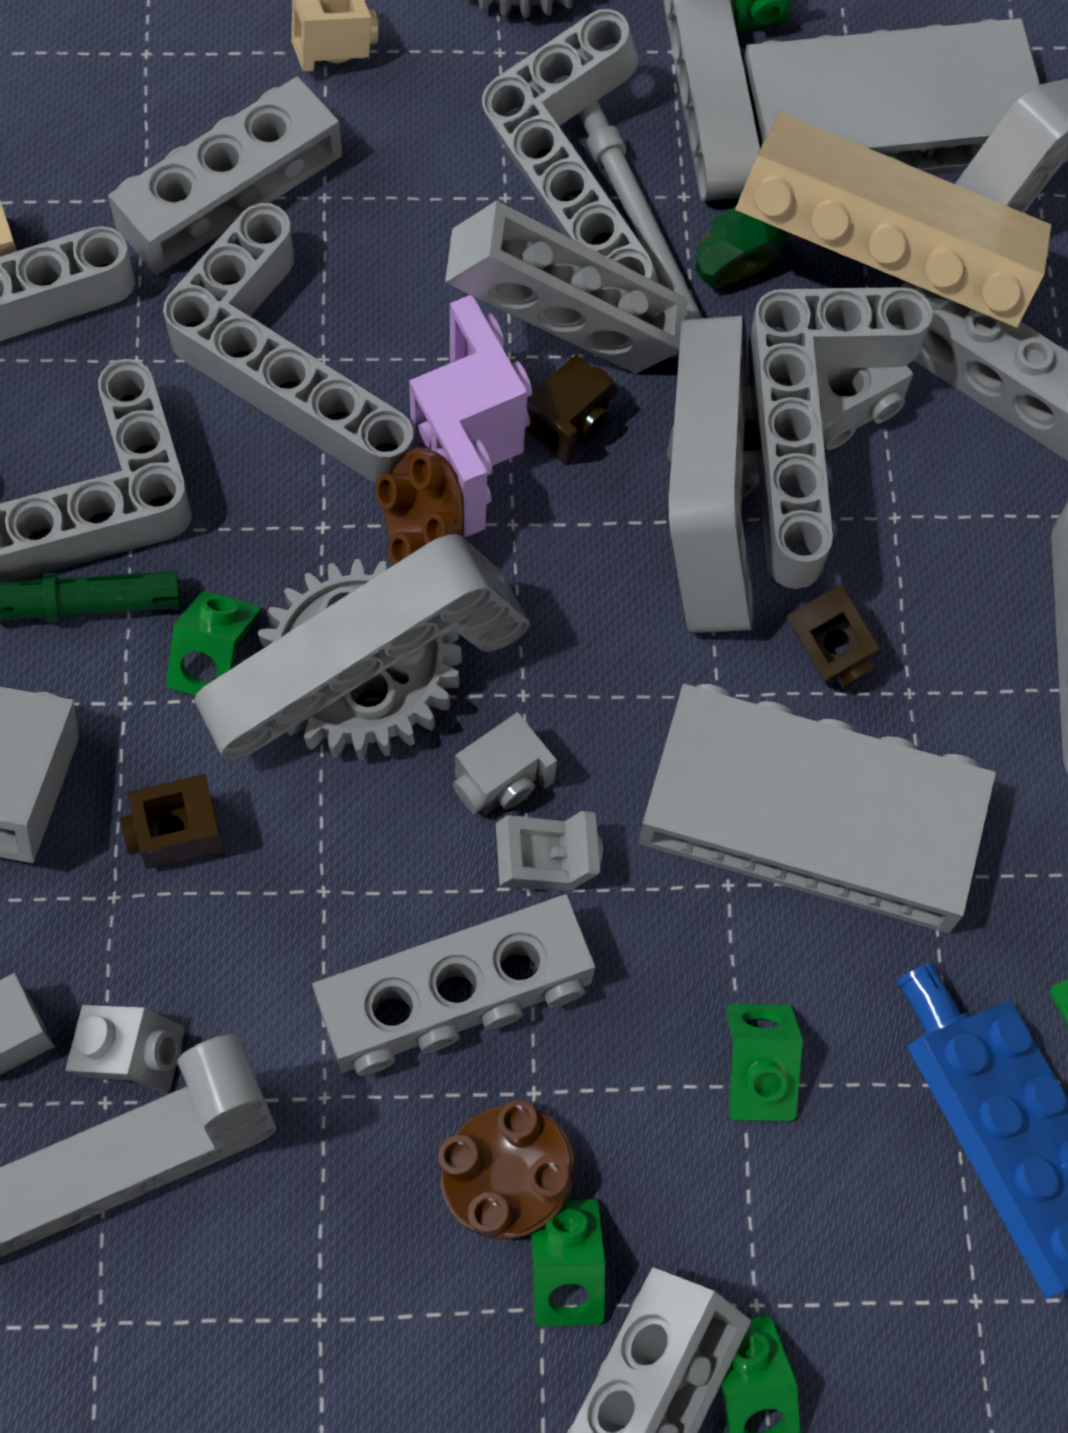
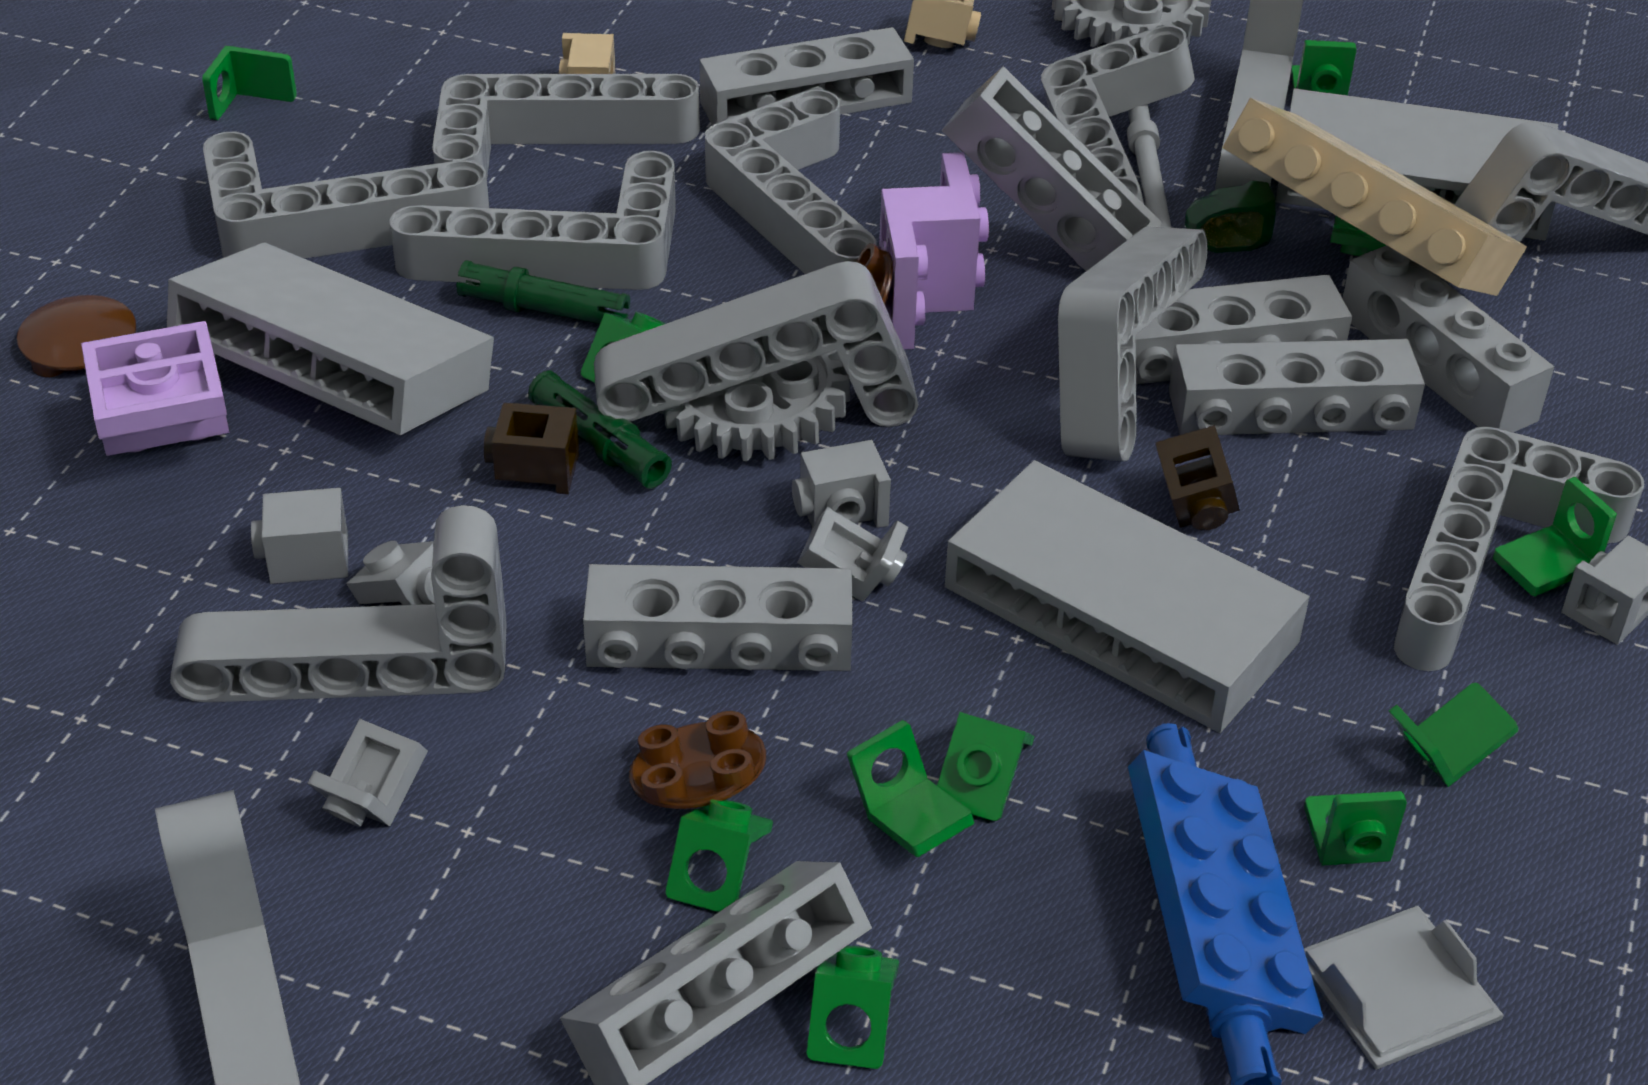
camera: 25 degrees right, 25 degrees down
(207, 1313) = (370, 775): none -> light grey bracket
(245, 777) = (639, 459): none -> dark green pin
(570, 407) = (1025, 277): dark brown brick -> none
(721, 1145) = (909, 805): none -> green bracket
(796, 409) = (1243, 254): light grey beam -> none
(954, 429) = (1296, 386): none -> light grey brick

